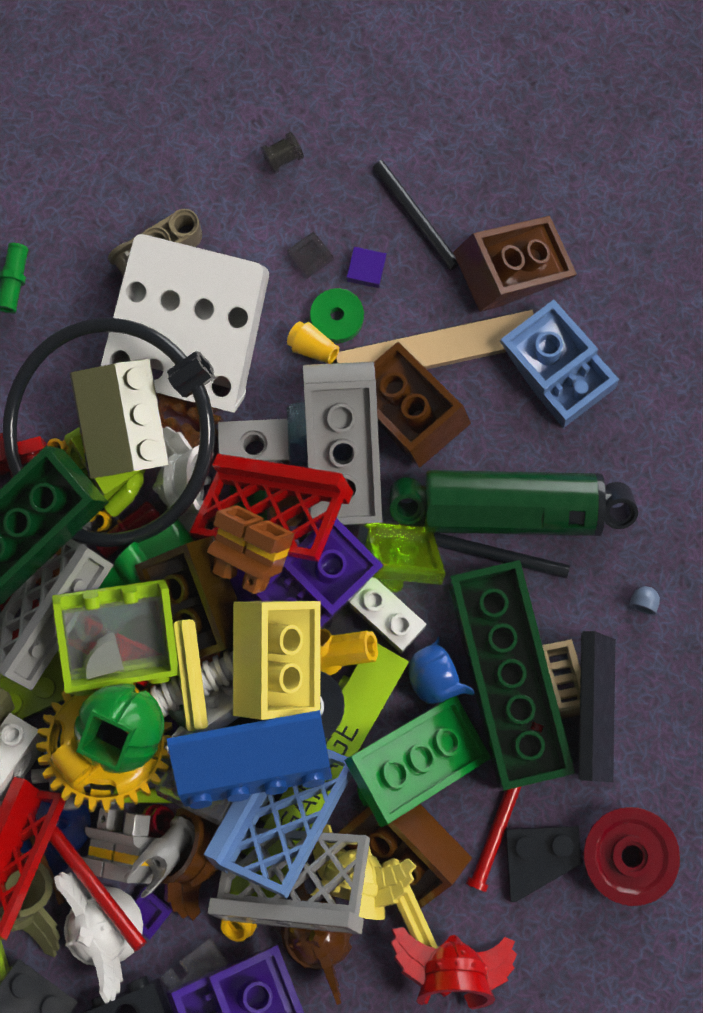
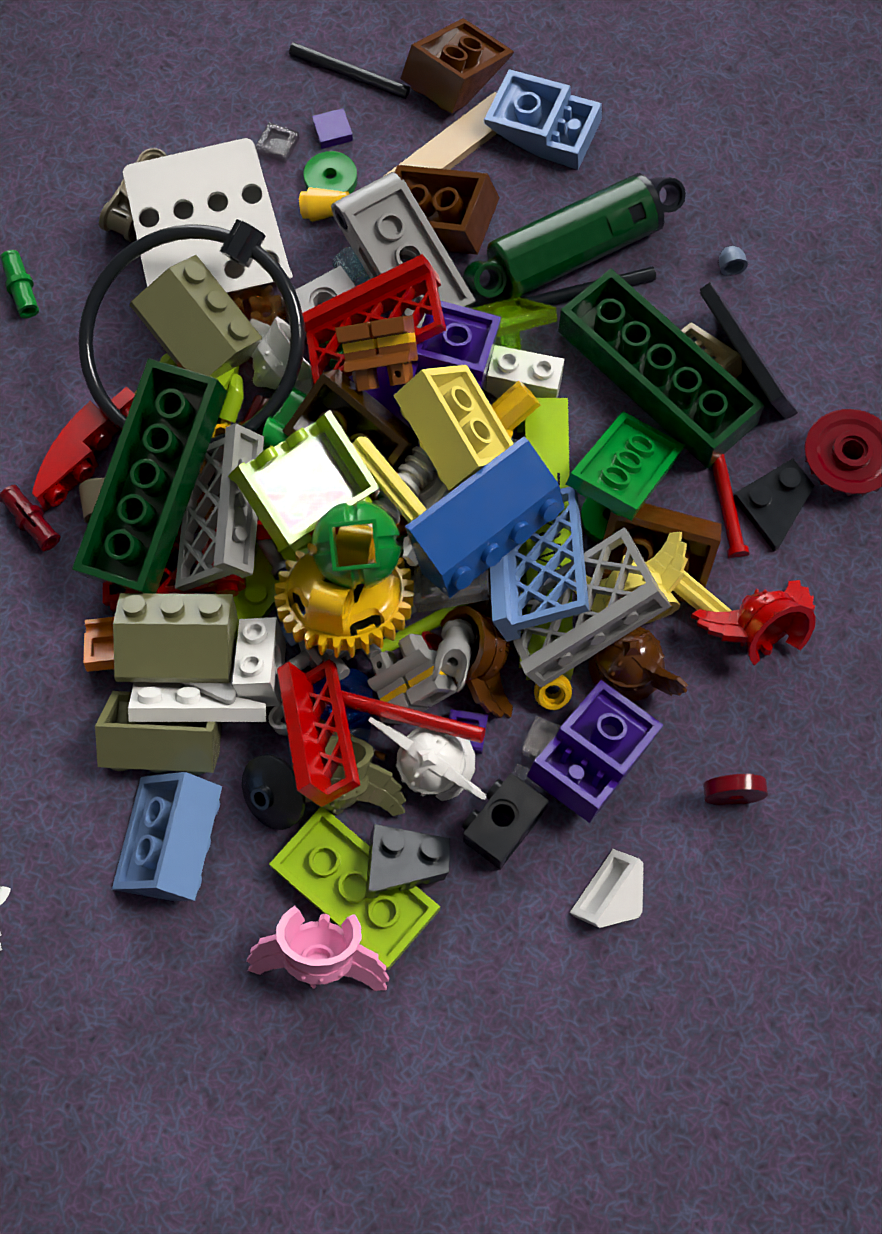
camera: 30 degrees left, 10 degrees down
(103, 657) = (305, 502): light grey tile -> none
(282, 152) = (204, 74): clear smoke bush -> none
(434, 675) = (597, 400): blue hair -> none

